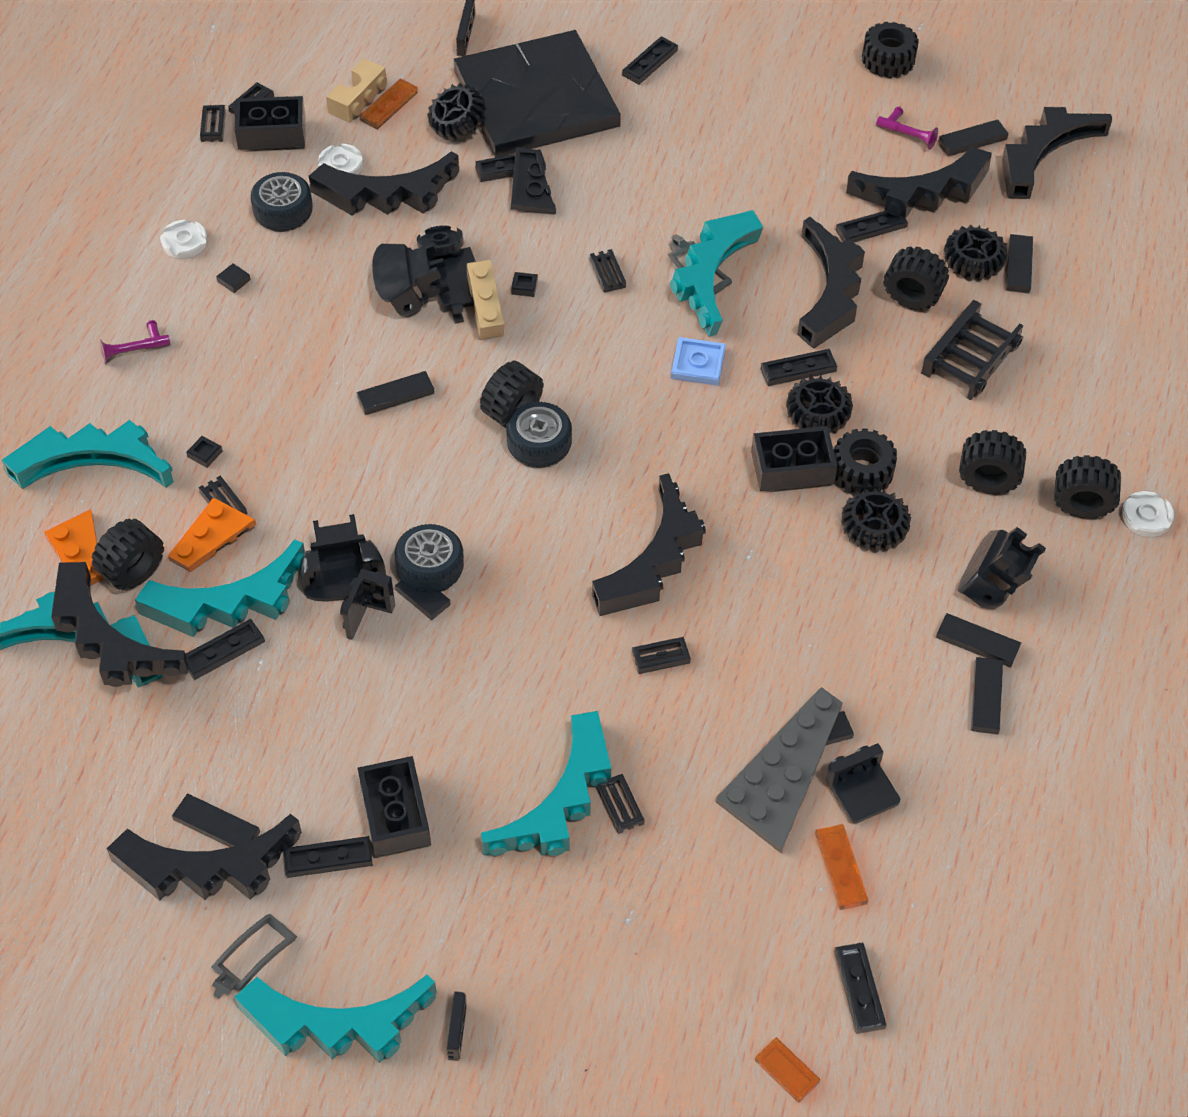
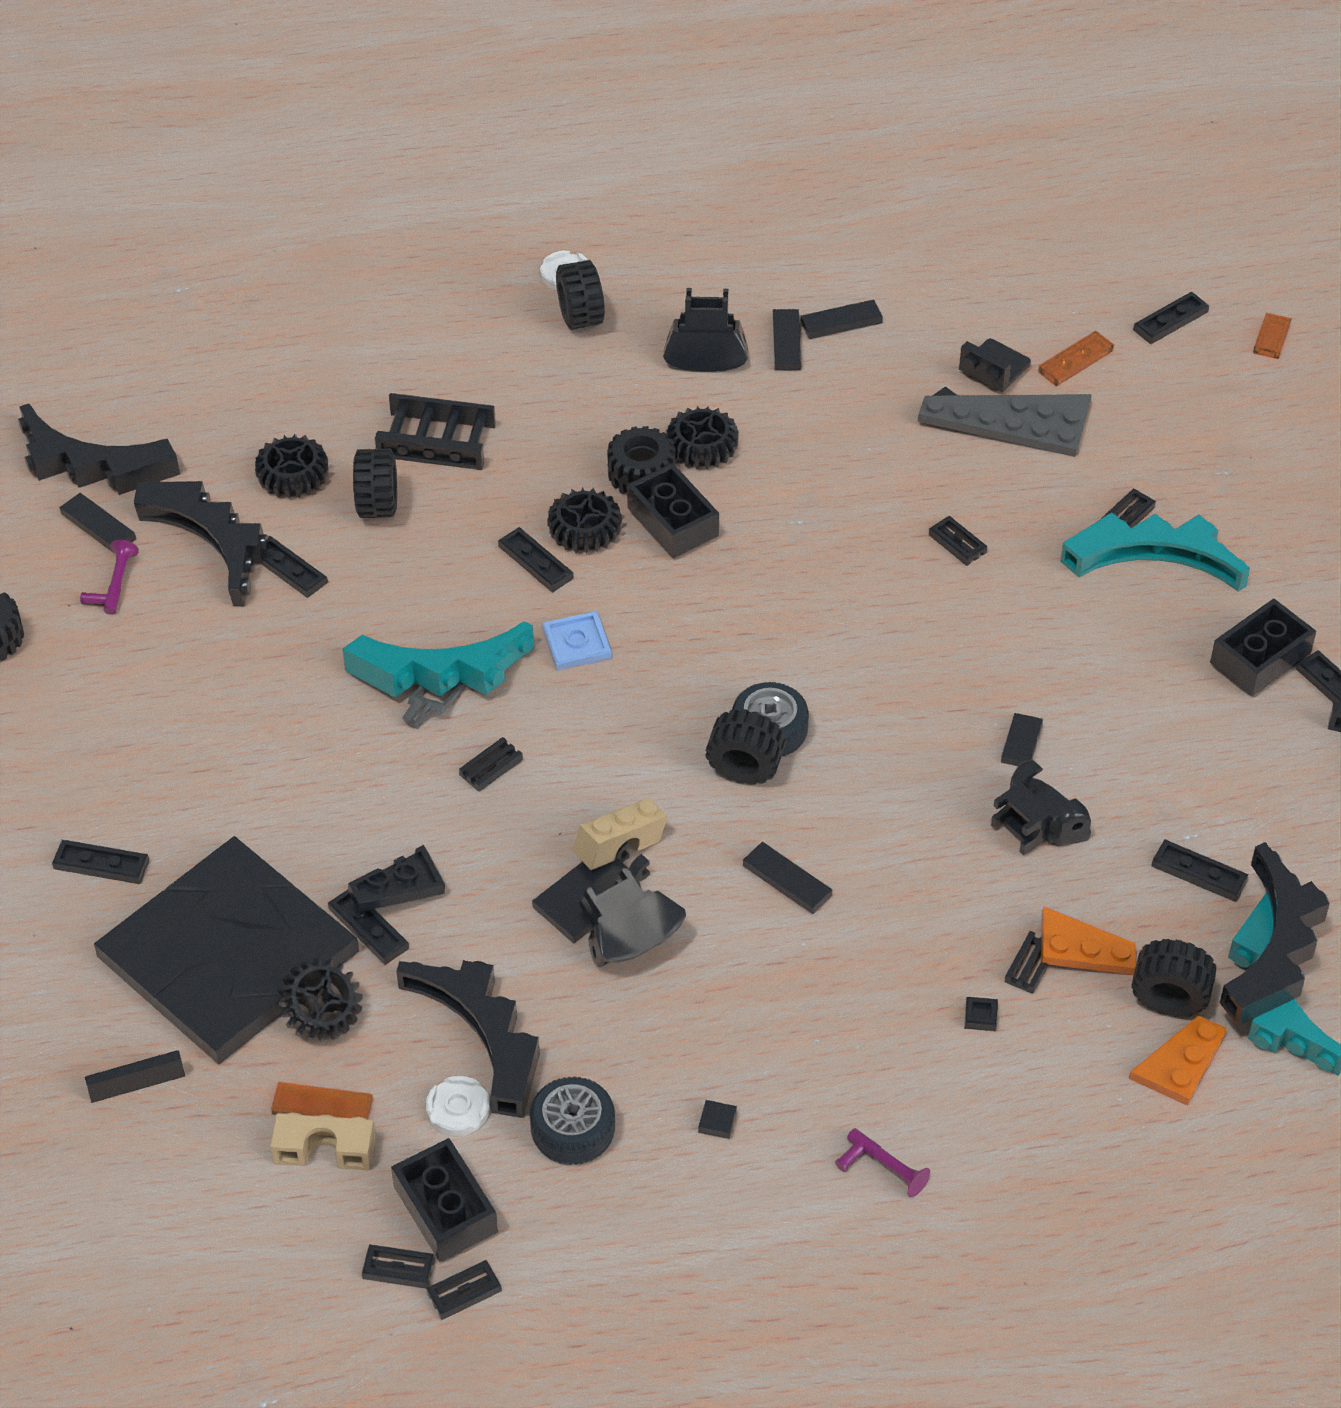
camera: 115 degrees left, 5 degrees down
(89, 446) = (1085, 1147): teal arch -> none
(184, 239) = (685, 1209): white tile -> none
(229, 603) = (1118, 862): teal arch -> none
(370, 591) = (1078, 764): black bracket -> none
(429, 557) = (985, 741): black wheel -> none
(445, 240) = (557, 937): black plate -> none
(524, 284) = (555, 831): black tile -> none
(641, 579) = (853, 571): black arch -> none
(835, 307) = (404, 556): black arch -> none
(992, 462) = (591, 363): black tyre -> none
(1019, 263) = (255, 438): black tile -> none

